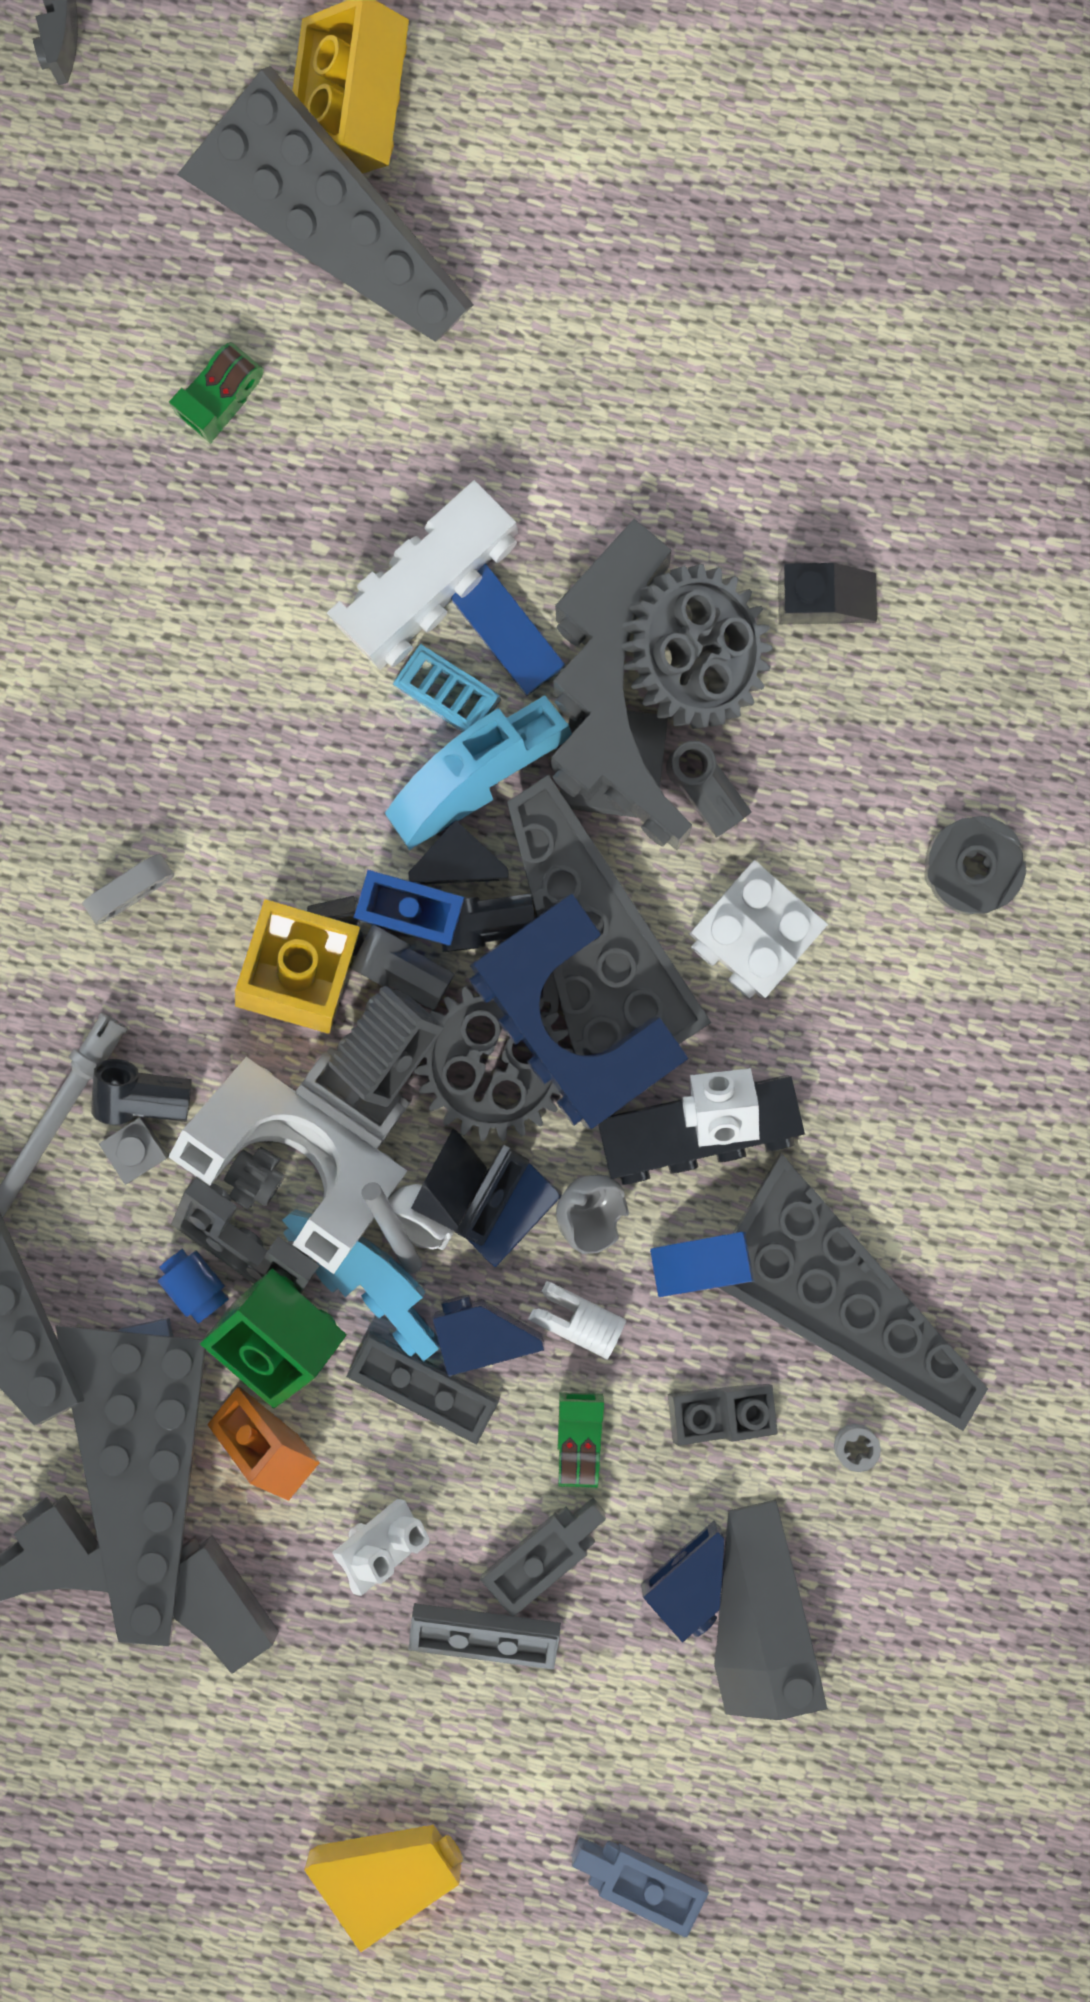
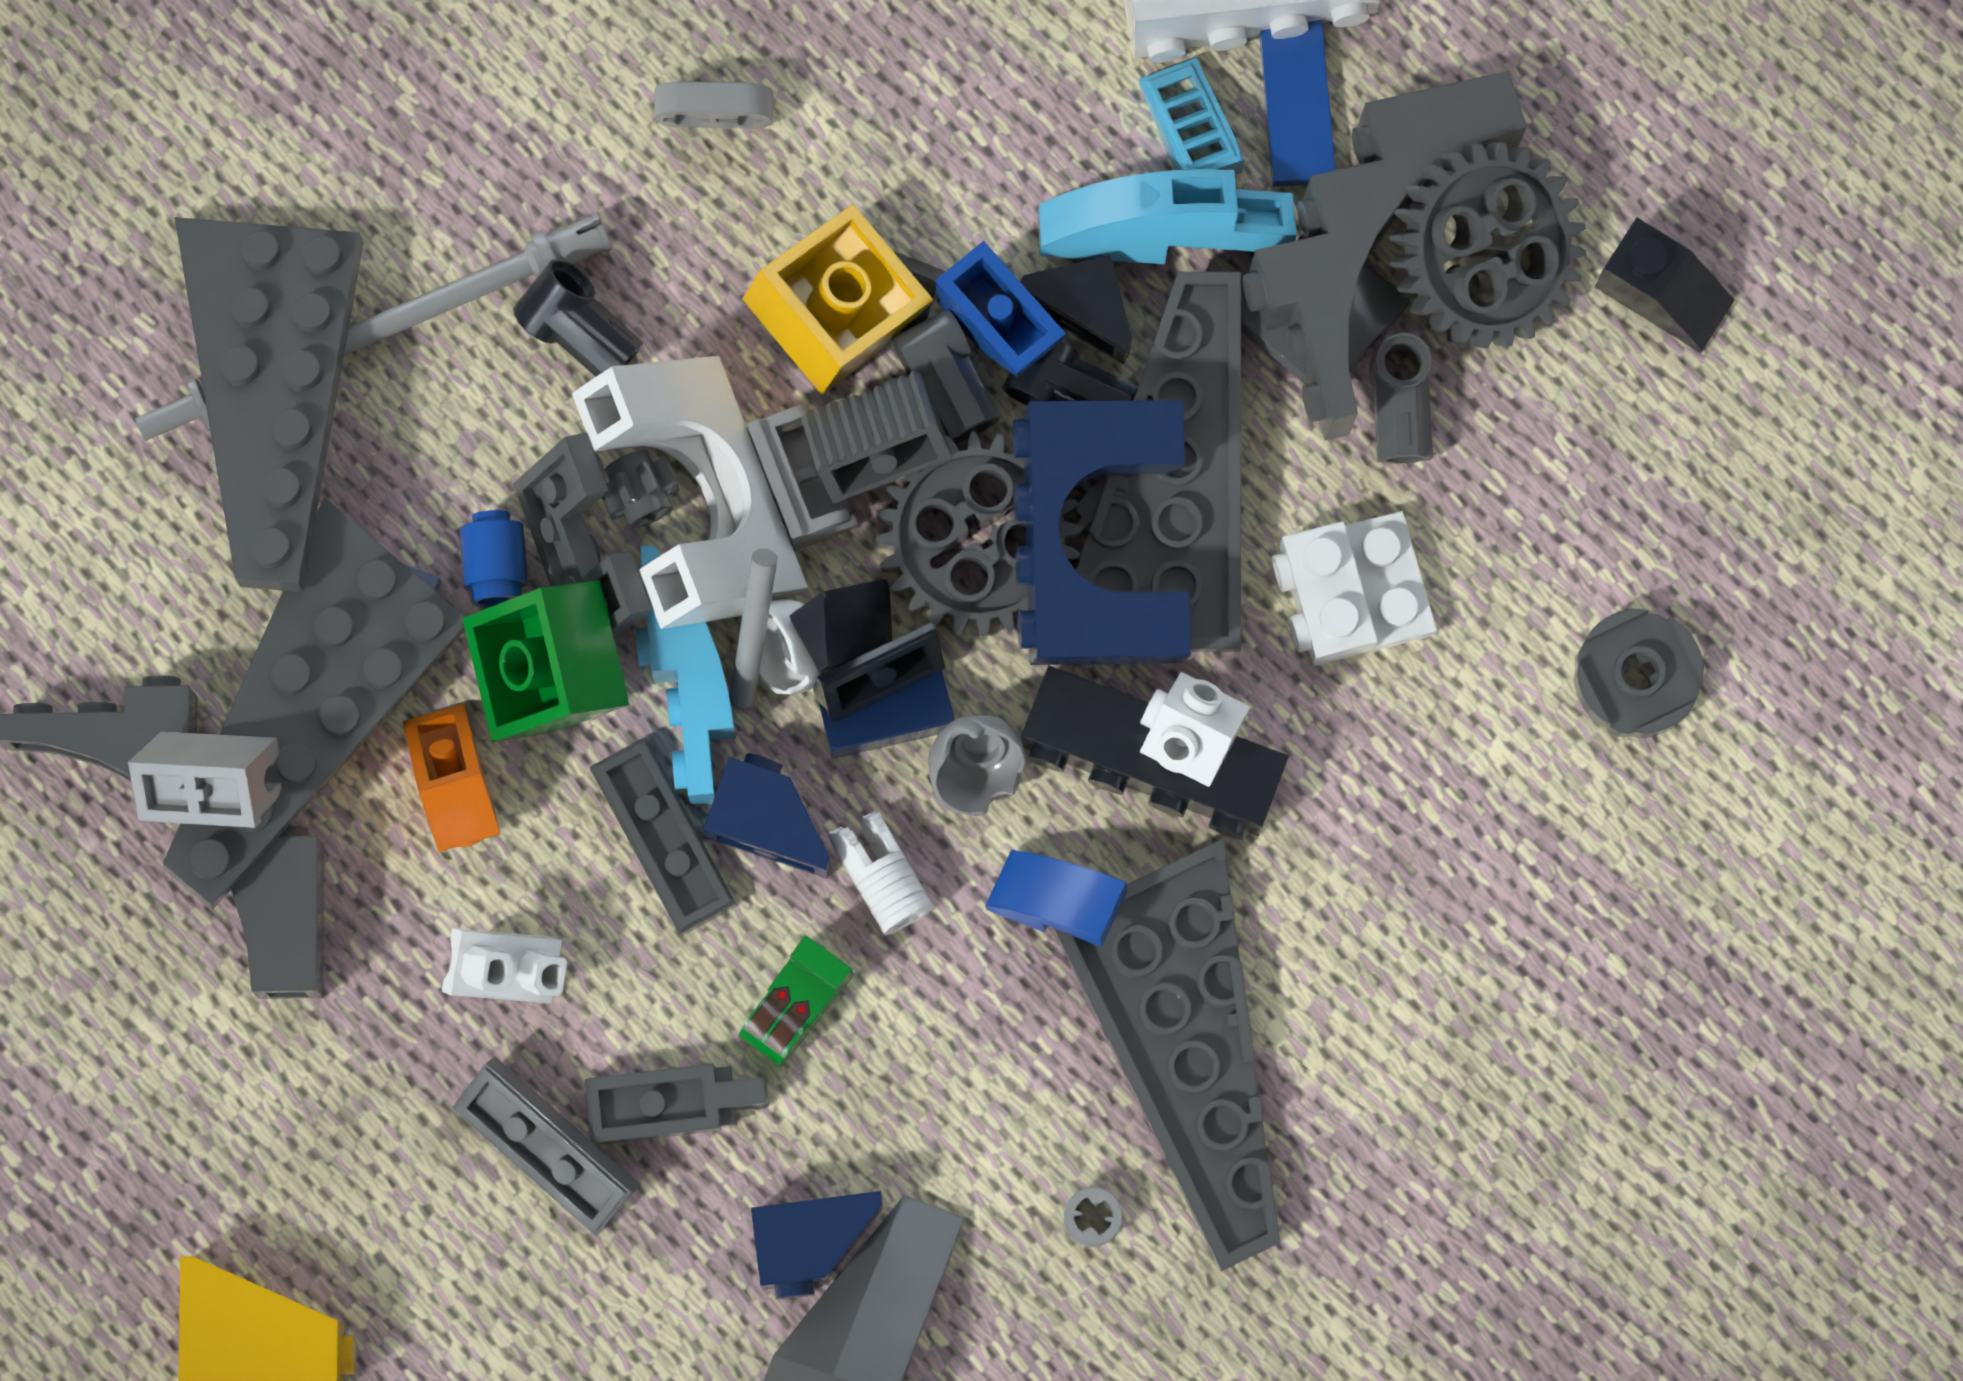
camera: 35 degrees right, 10 degrees down
(106, 1572) = (204, 779): none -> light grey hinge
(133, 1150) = (528, 380): light grey plate -> none
(722, 1413) = (969, 1081): dark grey slope -> none

